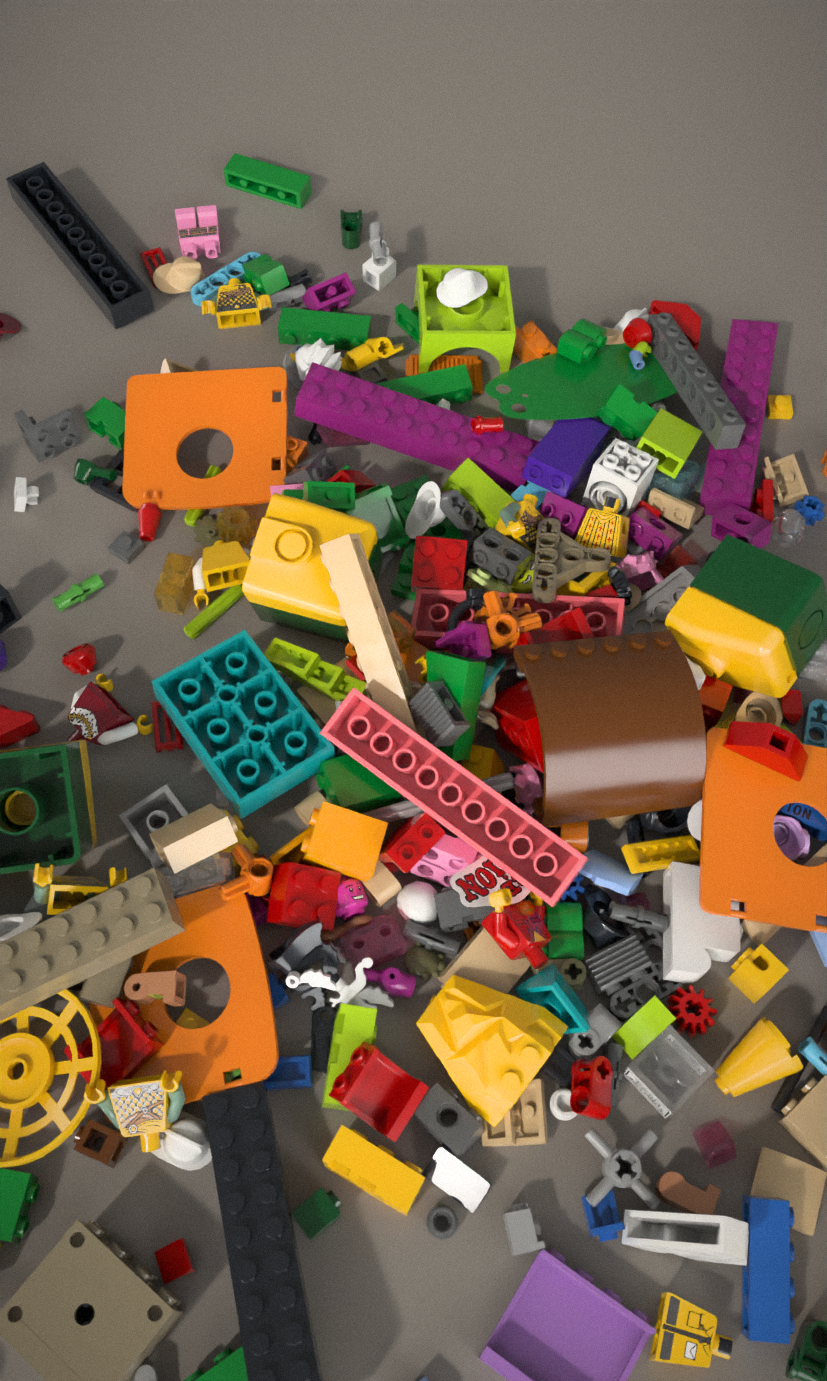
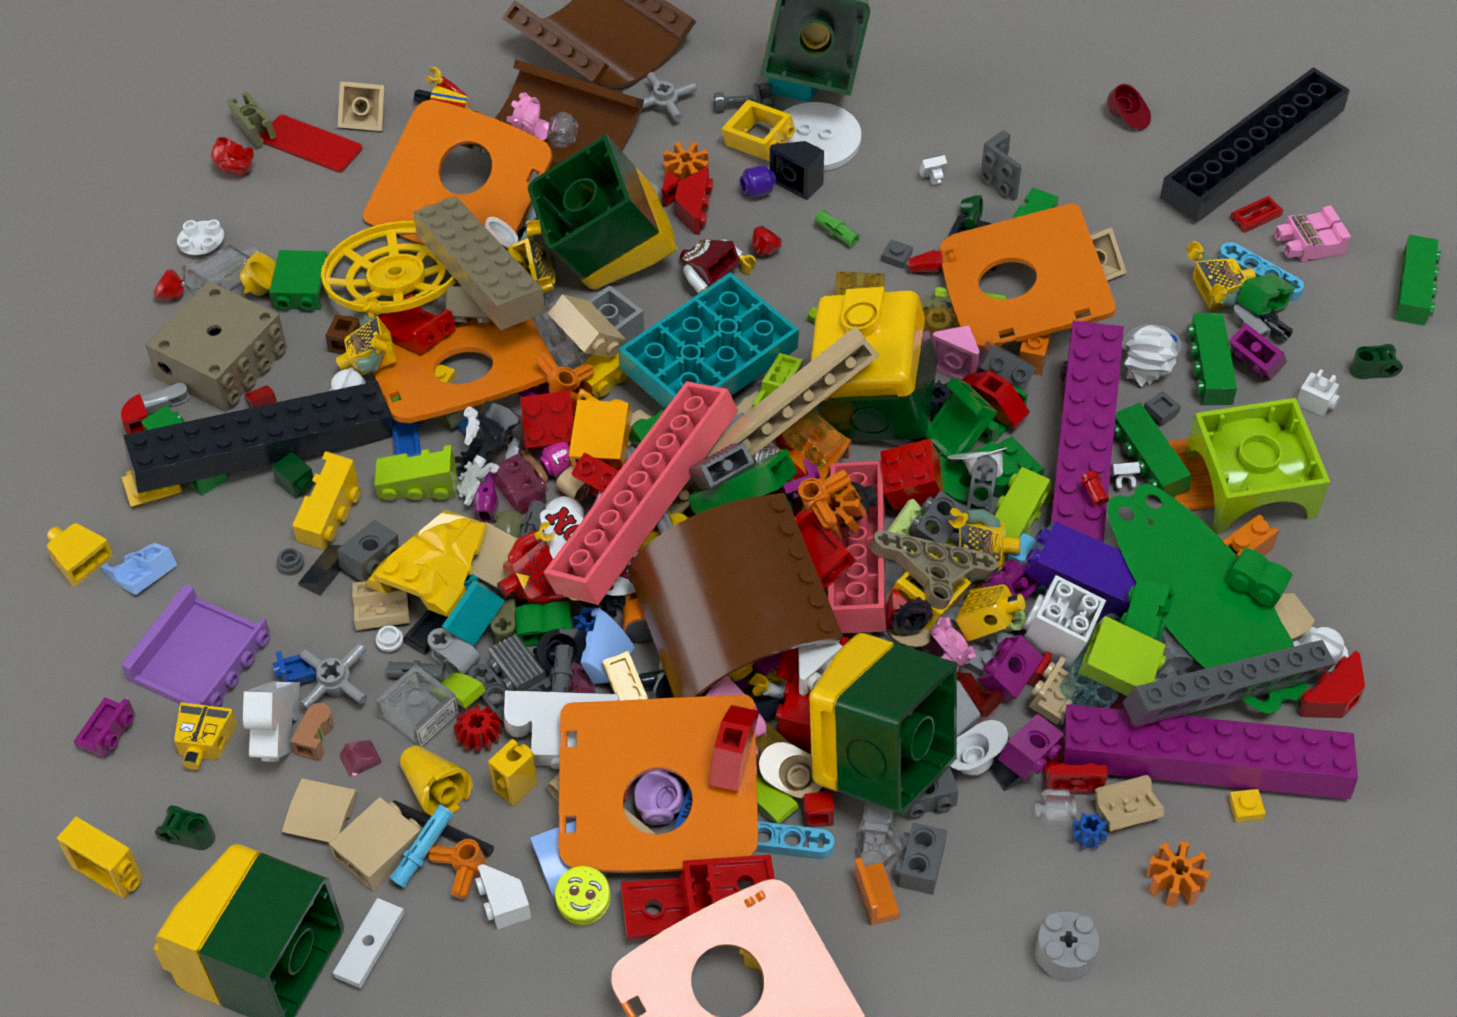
camera: 85 degrees right, 10 degrees down
(157, 985) = (463, 342): nougat leg -> none
(178, 276) = (1247, 231): tan piece -> none
(333, 495) = (948, 351): green panel -> none
(369, 352) = (1180, 391): yellow panel -> none
(378, 244) = (1325, 367): light grey pin -> none
(378, 1091) = (387, 488): red panel -> none
(461, 287) = (1278, 441): white piece -> none
(522, 1230) = (282, 612): light grey brick -> none
(590, 1089) = (394, 647): red piece -> none
(637, 331) = (1295, 633): red cone -> none
(637, 353) = (1262, 637): arm -> none
(767, 1274) = (252, 784): blue brick -> none

